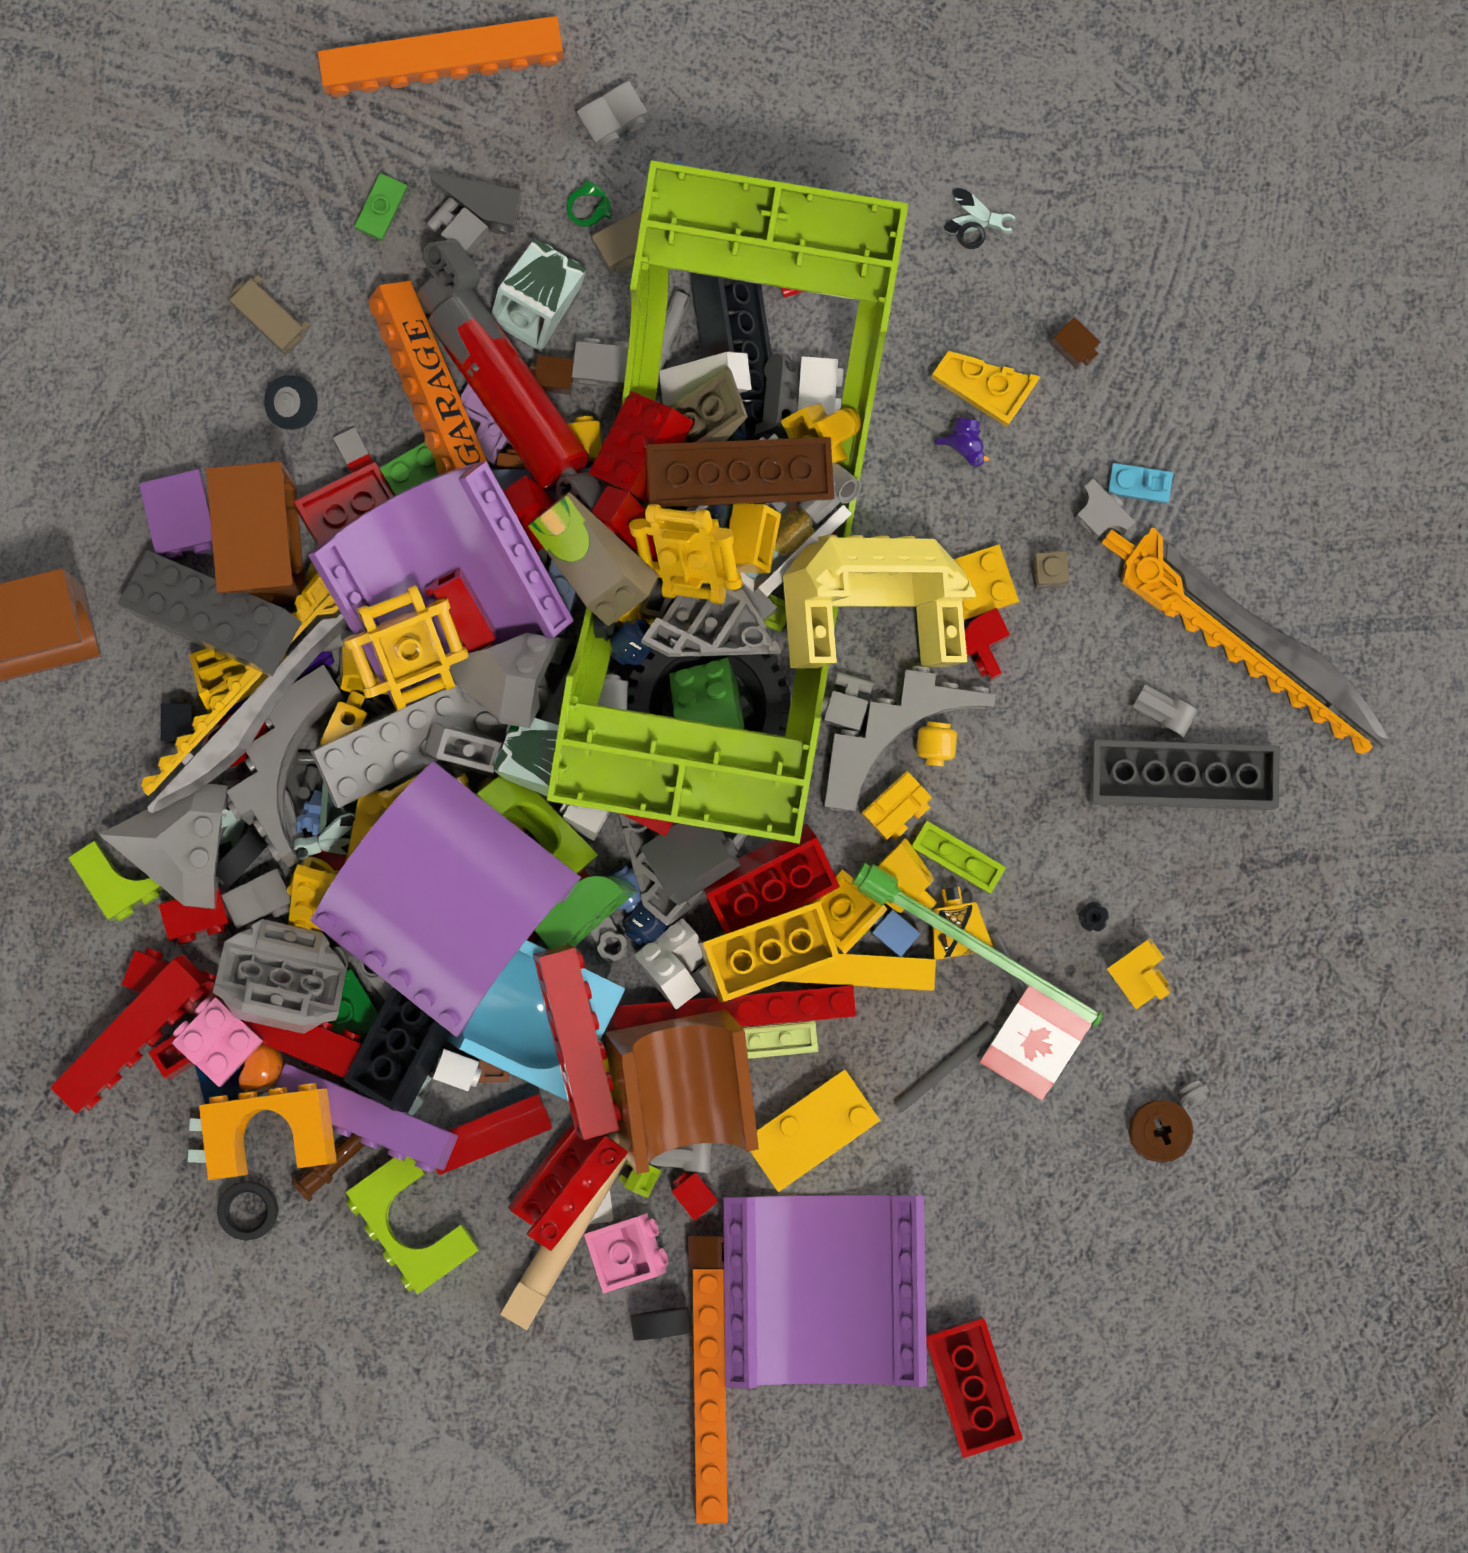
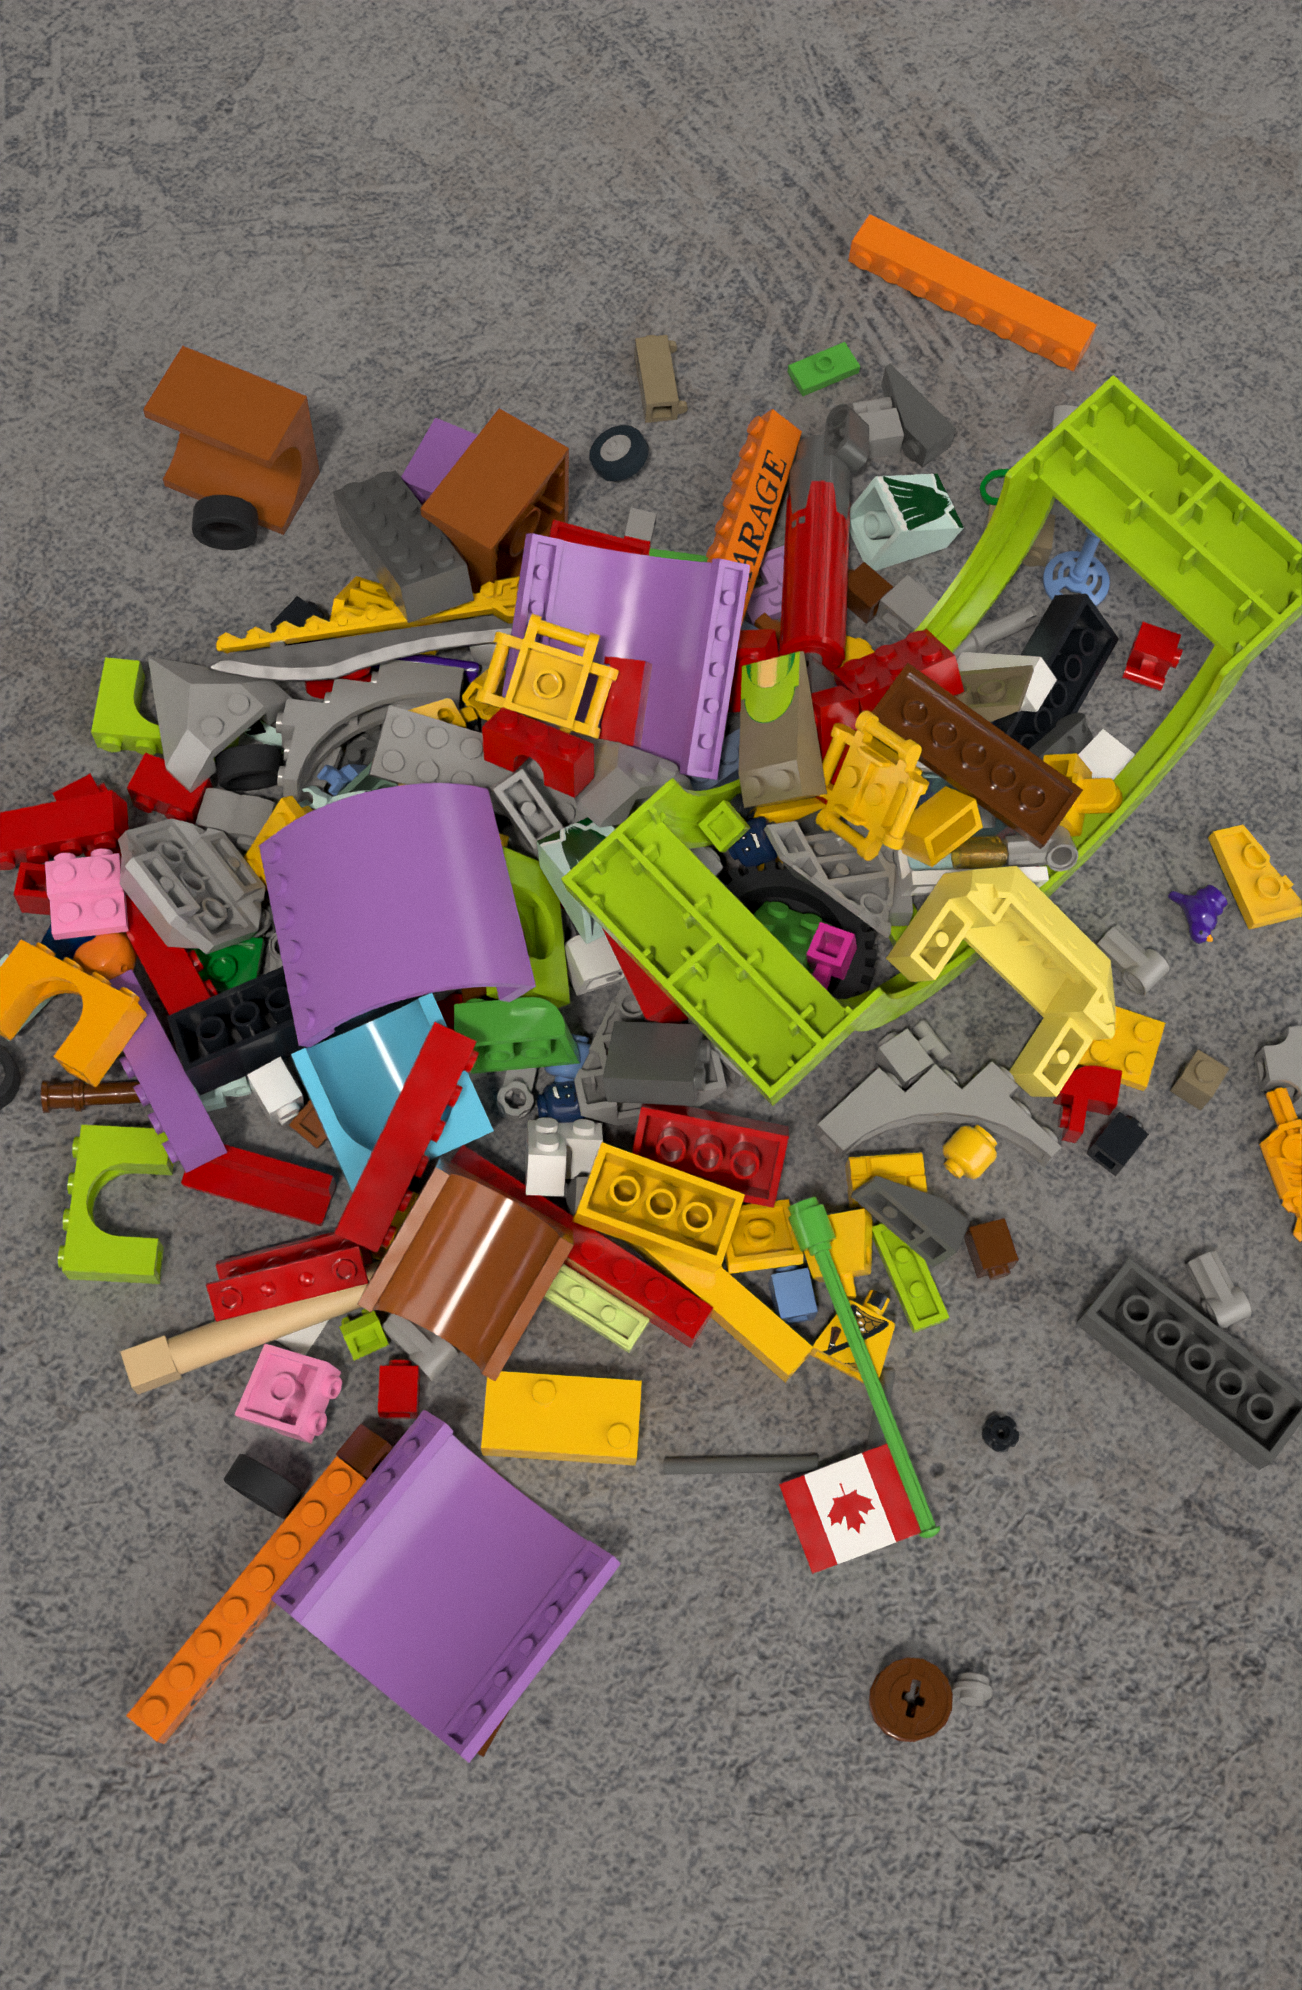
camera: 35 degrees right, 15 degrees down
(60, 687) = (239, 526): none -> black tyre
(466, 700) = (564, 758): none -> red arch
(608, 655) = (724, 826): none -> lime tile
(749, 688) = (831, 953): none -> dark pink brick
(944, 819) = (914, 1216): none -> dark grey slope
(952, 516) = (1139, 967): none -> light grey piece
(973, 1387) = (515, 1808): red brick -> none
(1000, 799) = (991, 1249): none -> reddish brown brick
(1029, 657) = (1118, 1143): none -> black brick
(1139, 975) = (1005, 1520): yellow plate -> none

